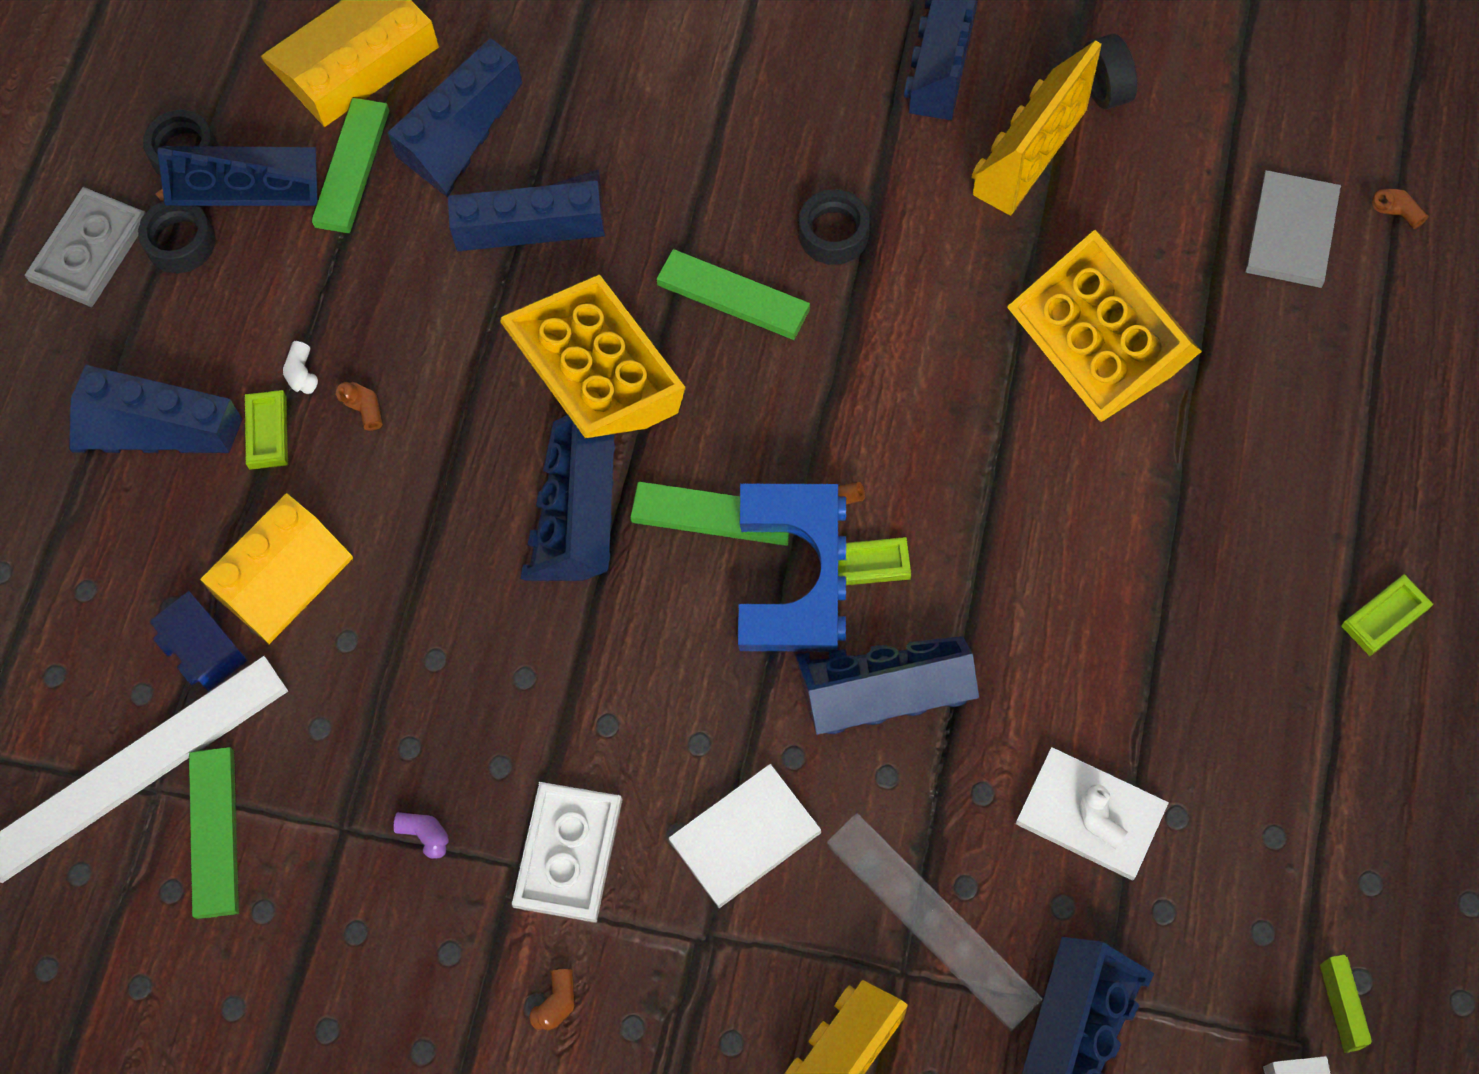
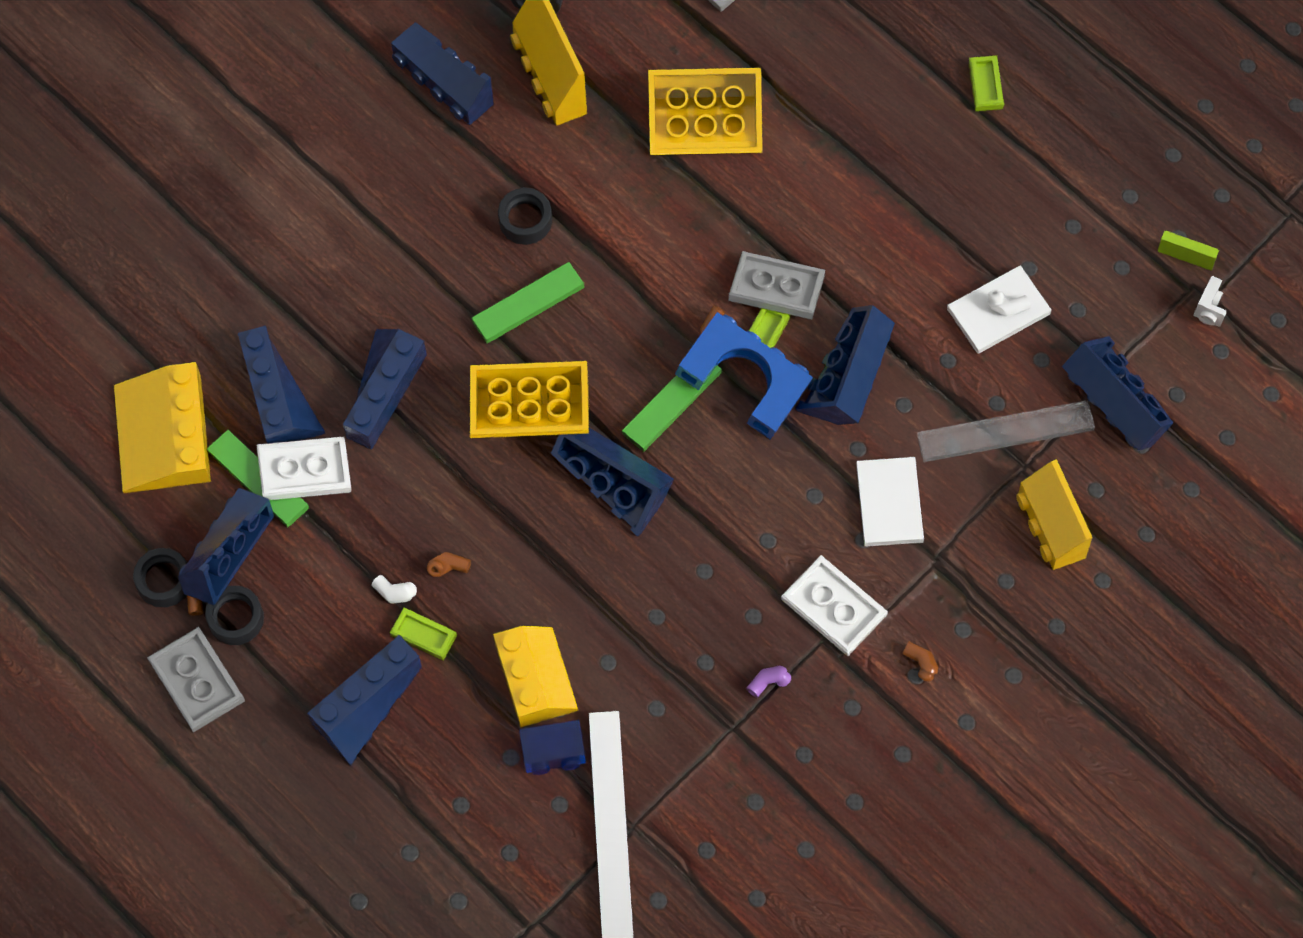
camera: 60 degrees left, 0 degrees up
(213, 833) = (686, 803): bright green tile -> none
(385, 197) = (303, 468): none -> white tile
(937, 537) = (777, 285): none -> light grey tile

